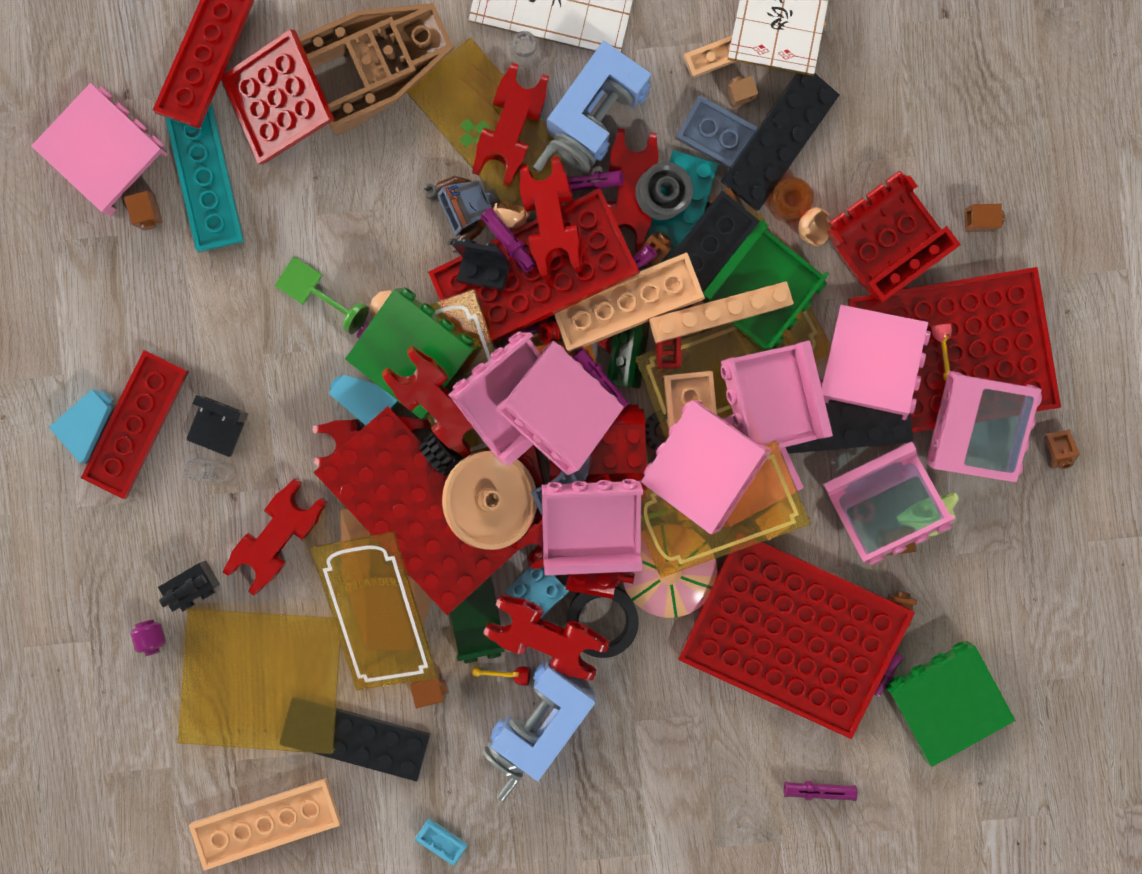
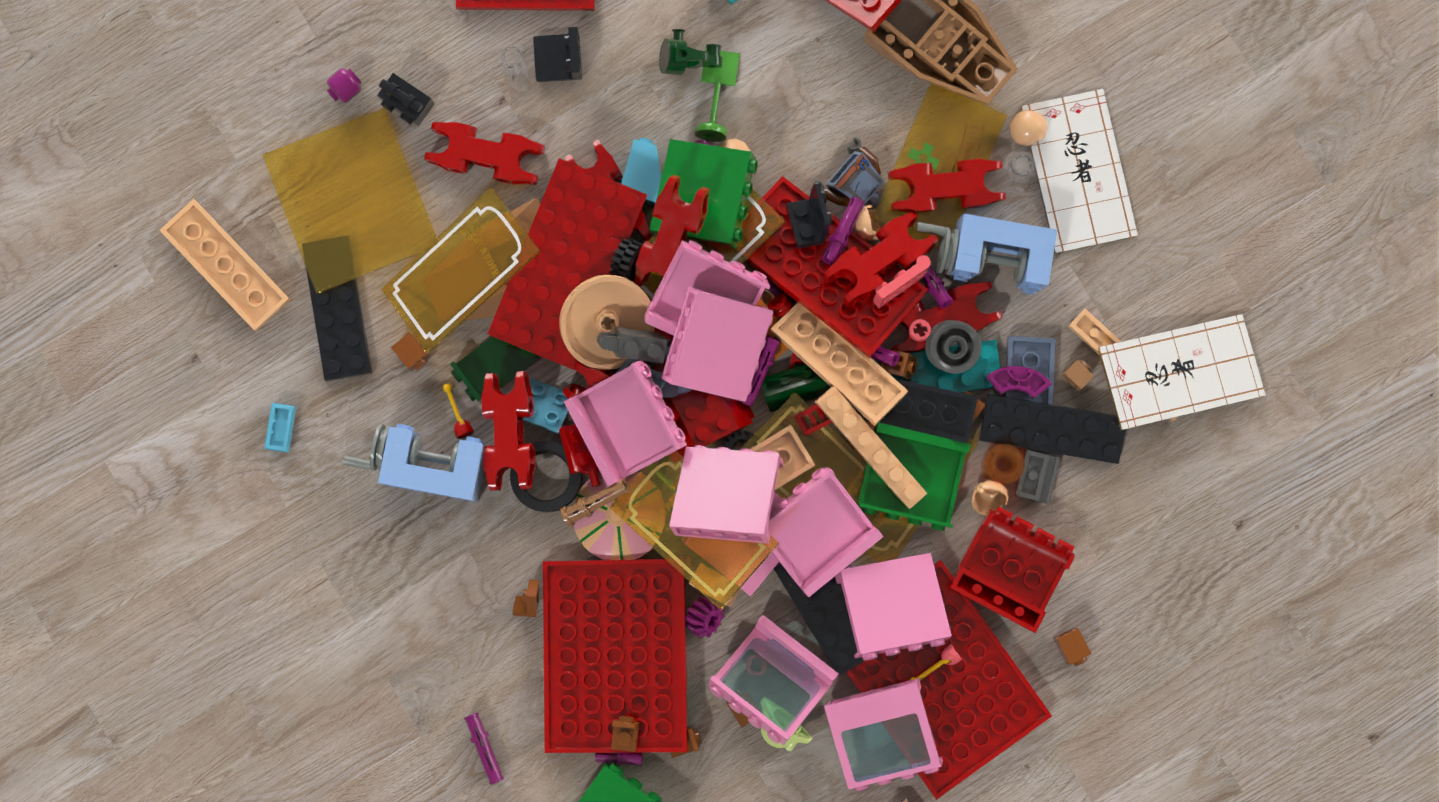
camera: 60 degrees right, 5 degrees down
(269, 315) = (677, 57): none -> dark green piece
(492, 23) = (1028, 127): none -> light nougat hair
(524, 483) = (636, 344): none -> dark grey hinge
(582, 207) = (901, 281): none -> coral plate
(628, 209) = (916, 337): none -> coral bush
(649, 599) = (584, 505): none -> medium nougat pin
(709, 691) = (527, 603): none -> dark orange bracket
(720, 146) = (1018, 378): none -> magenta tile
(801, 541) = (703, 617): none -> magenta gear
(817, 172) = (1037, 477): none -> dark grey plate
(872, 660) = (625, 734): none -> dark orange bracket

